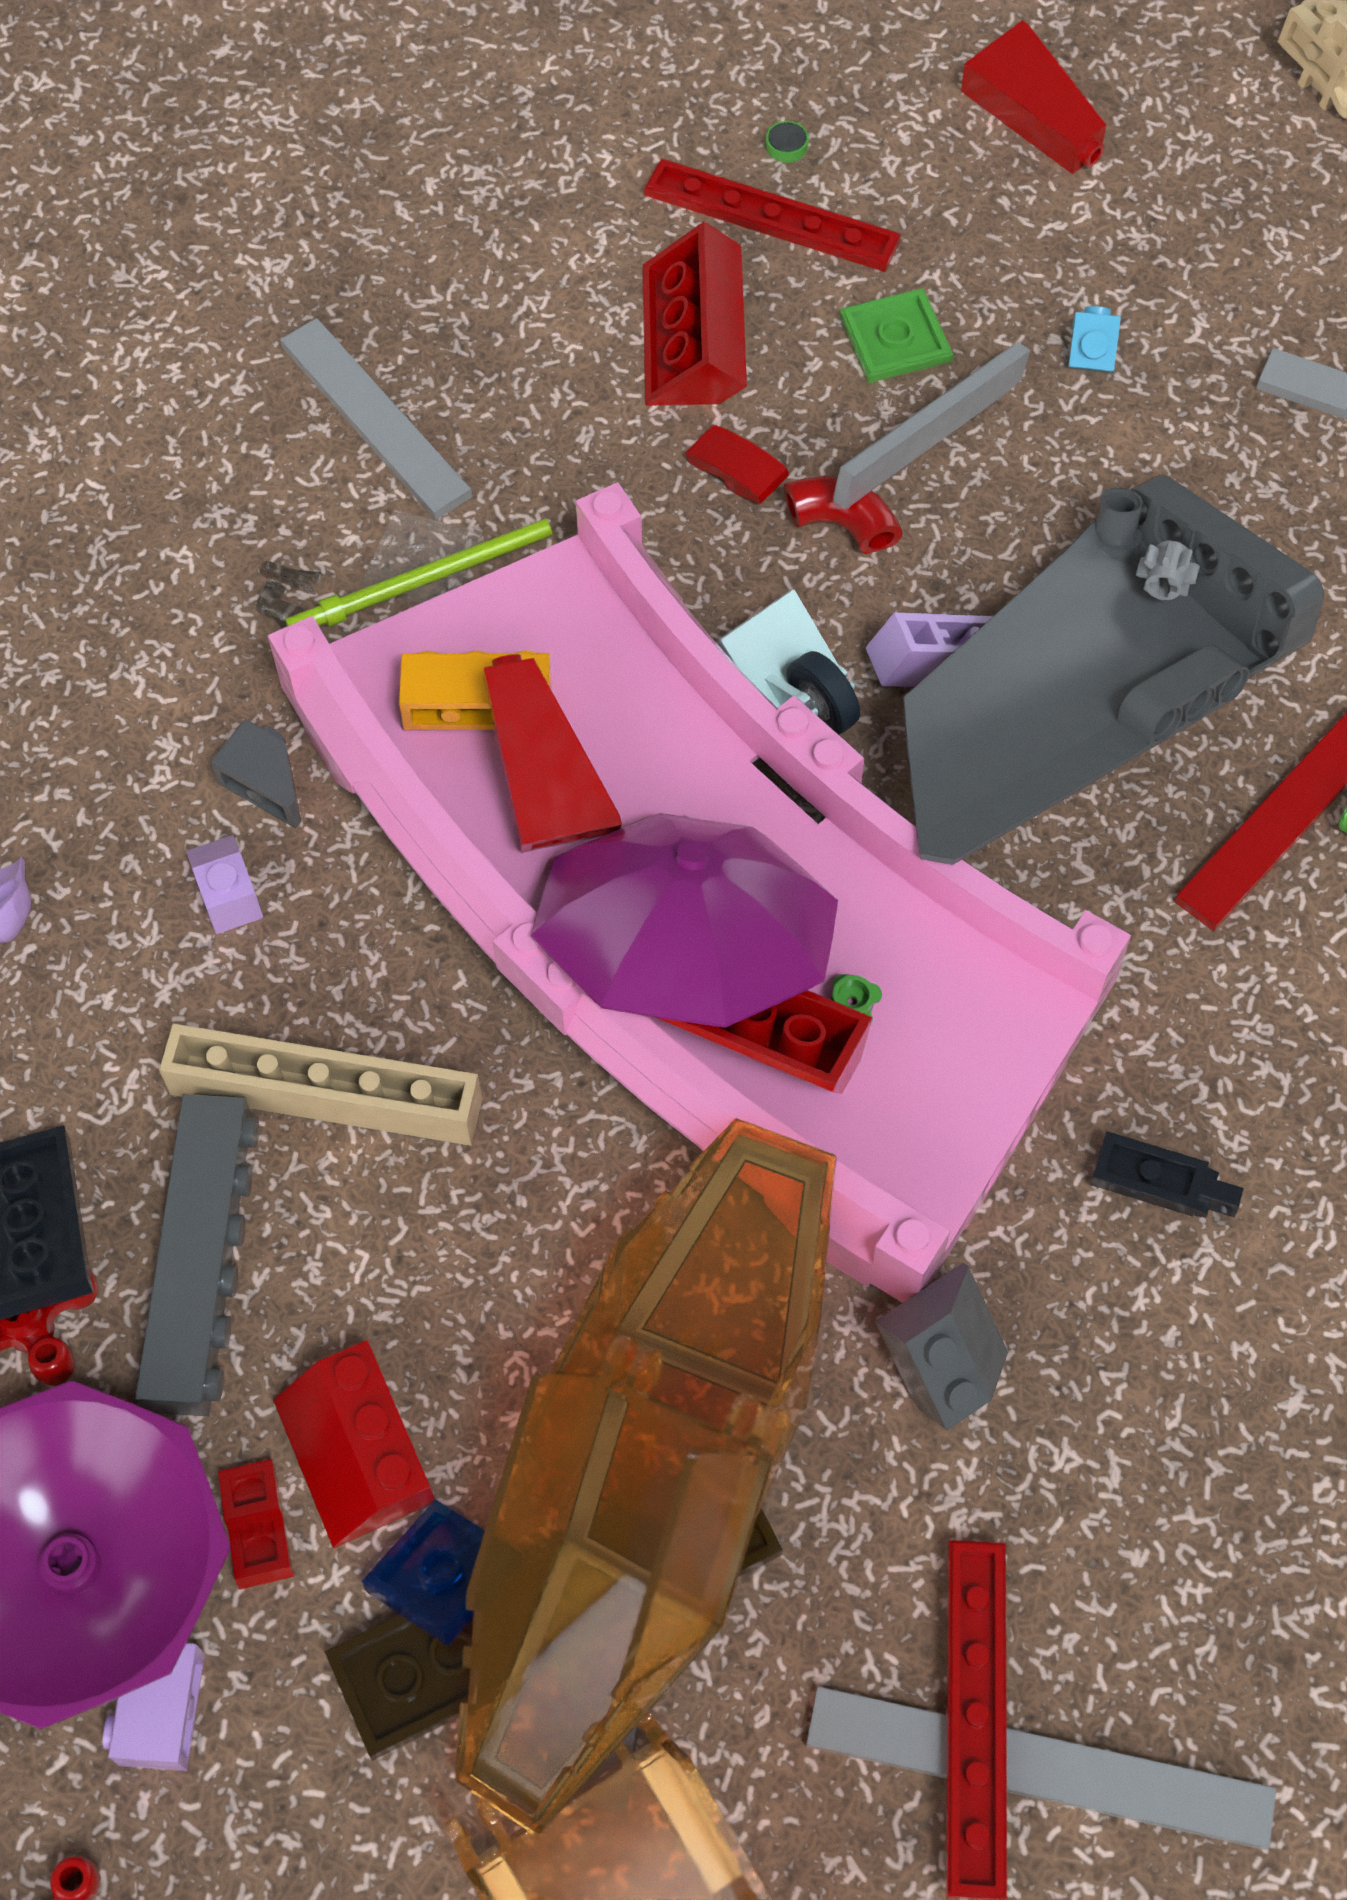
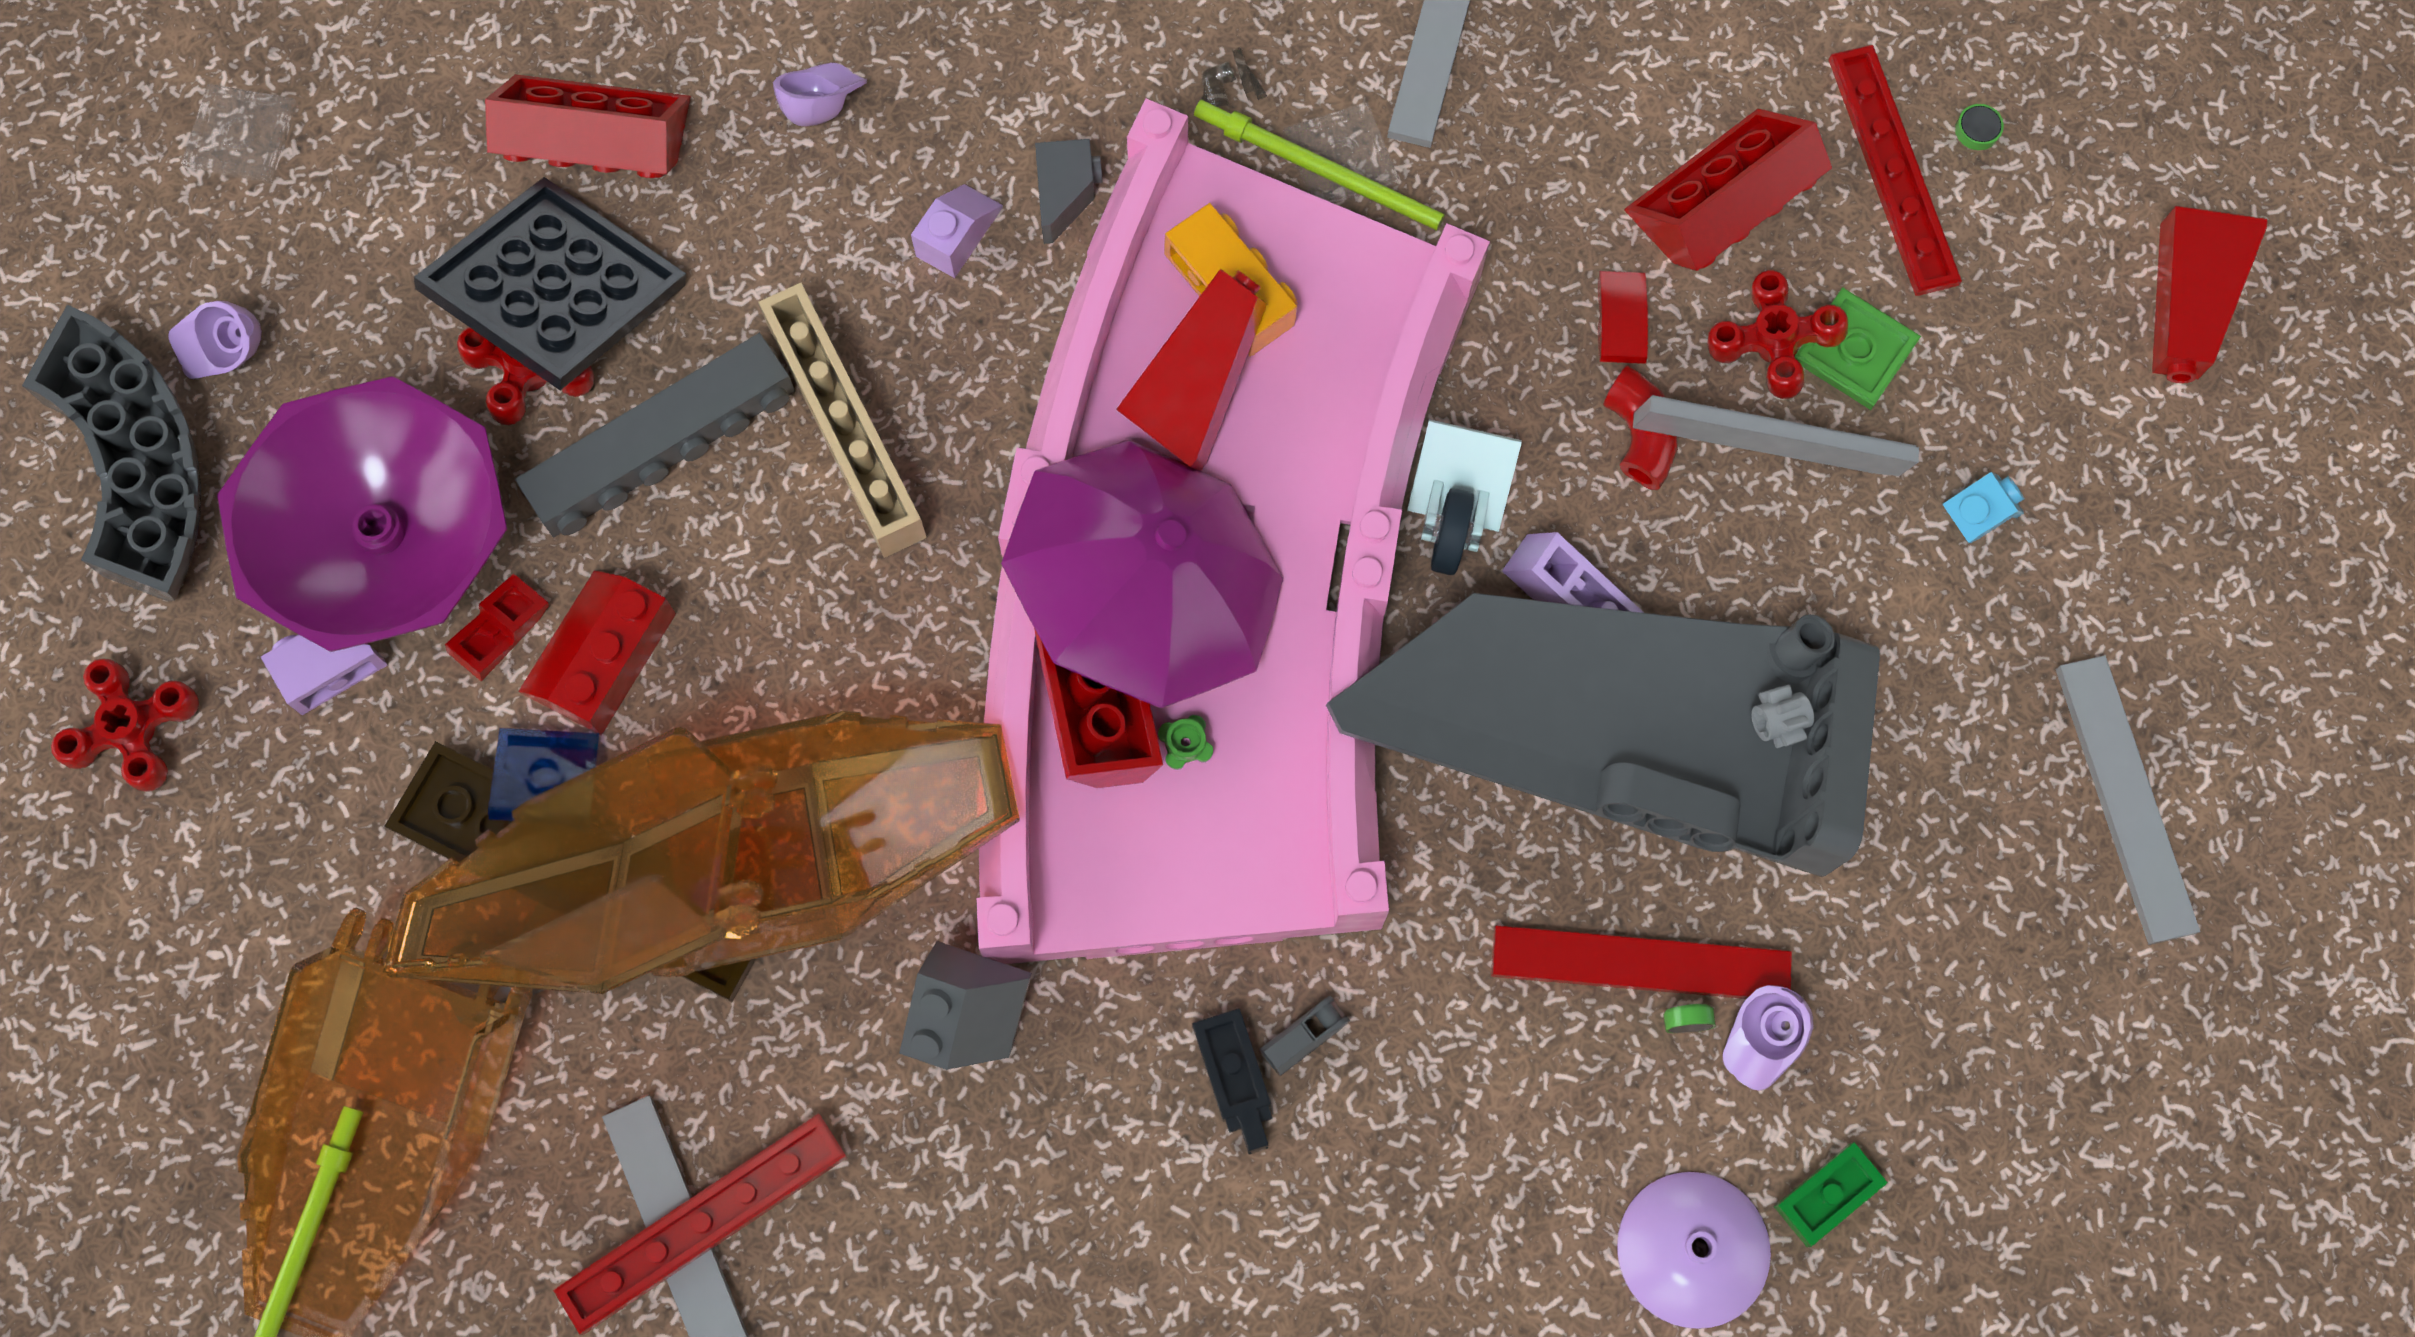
camera: 50 degrees right, 10 degrees up
(844, 371) = (1777, 334): none -> red gear
(1164, 1106) = (1298, 1041): none -> dark grey bar

